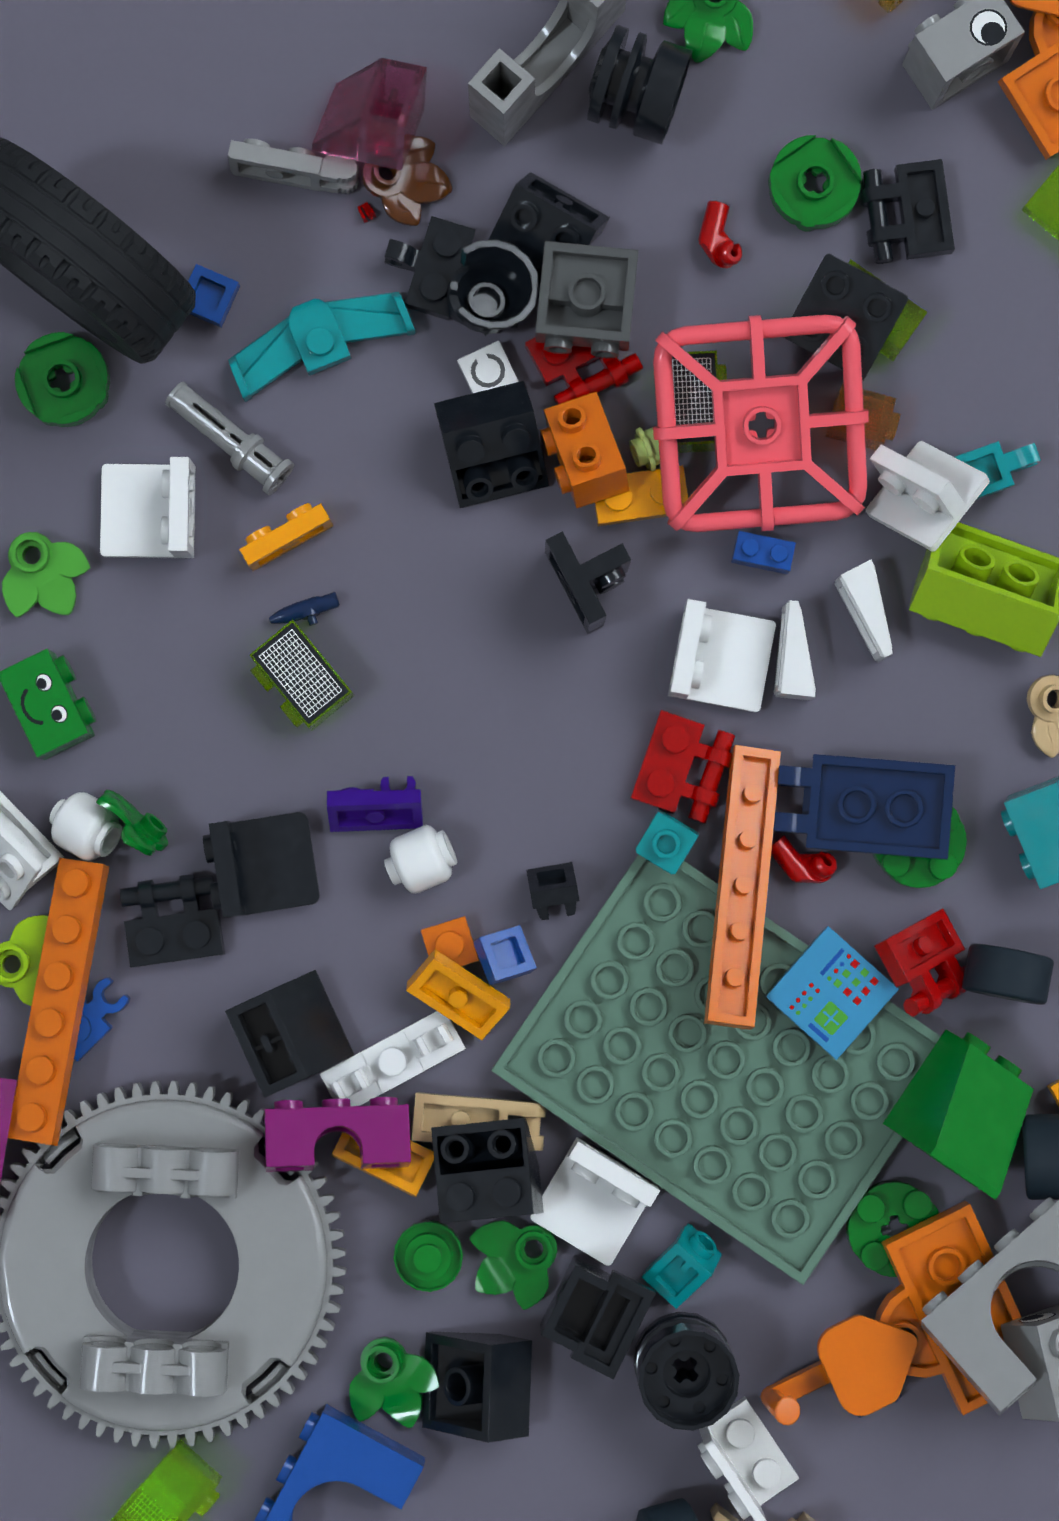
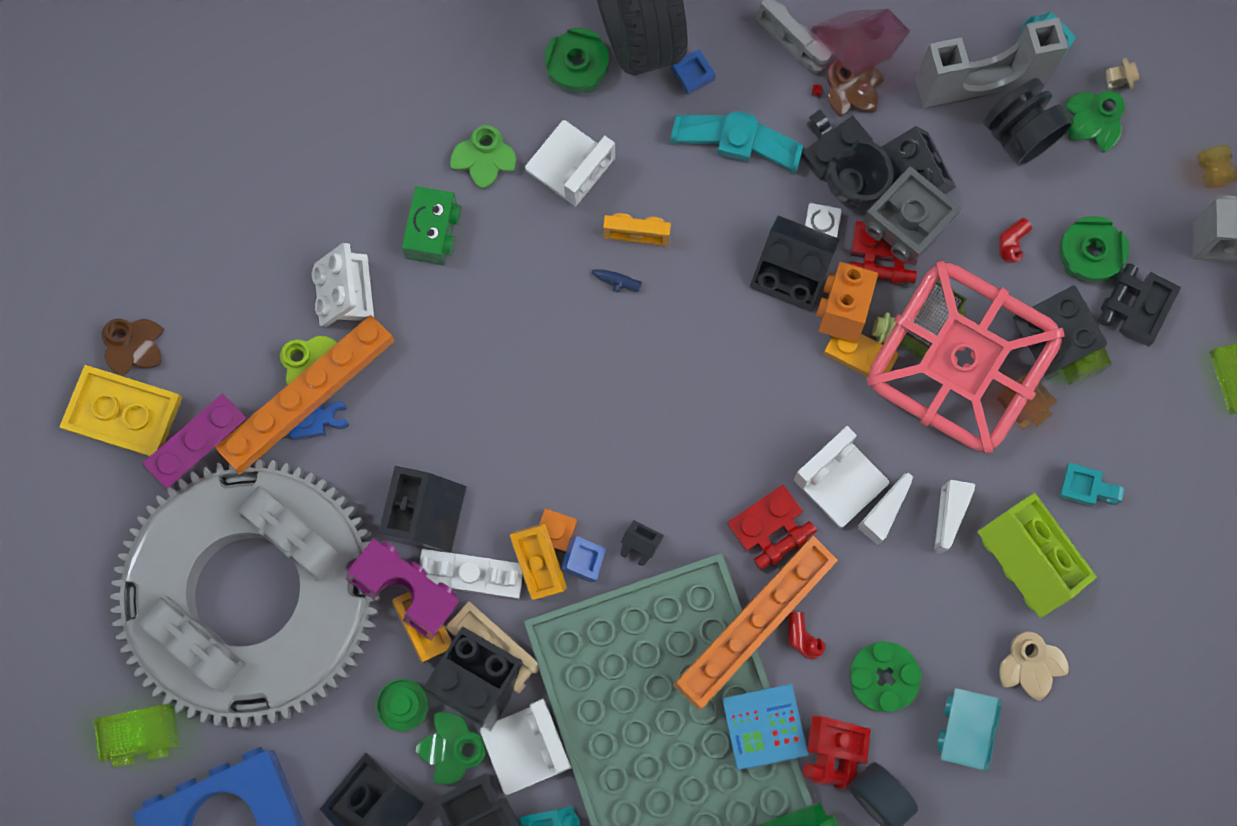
camera: 40 degrees right, 10 degrees down
(84, 827) = (398, 308): white head -> none
(140, 831) = (428, 334): green plate -> none
(172, 936) = (400, 408): black plate -> none
(245, 450) = (650, 167): light grey pin -> none
(262, 864) = (481, 402): black bracket -> none
(301, 677) = (586, 313): brick -> none
(375, 810) = (571, 418): dark purple plate -> none
(391, 1388) = (320, 771): green plate -> none
(420, 859) = (576, 466): white head -> none
(579, 581) = (798, 373): black bracket -> none
(666, 842) = (729, 561): teal bracket -> none
(763, 552) = (911, 437): blue piece -> none
(872, 806) = (870, 631): dark blue tile -> none
(923, 492) = (1035, 468): white bracket -> none

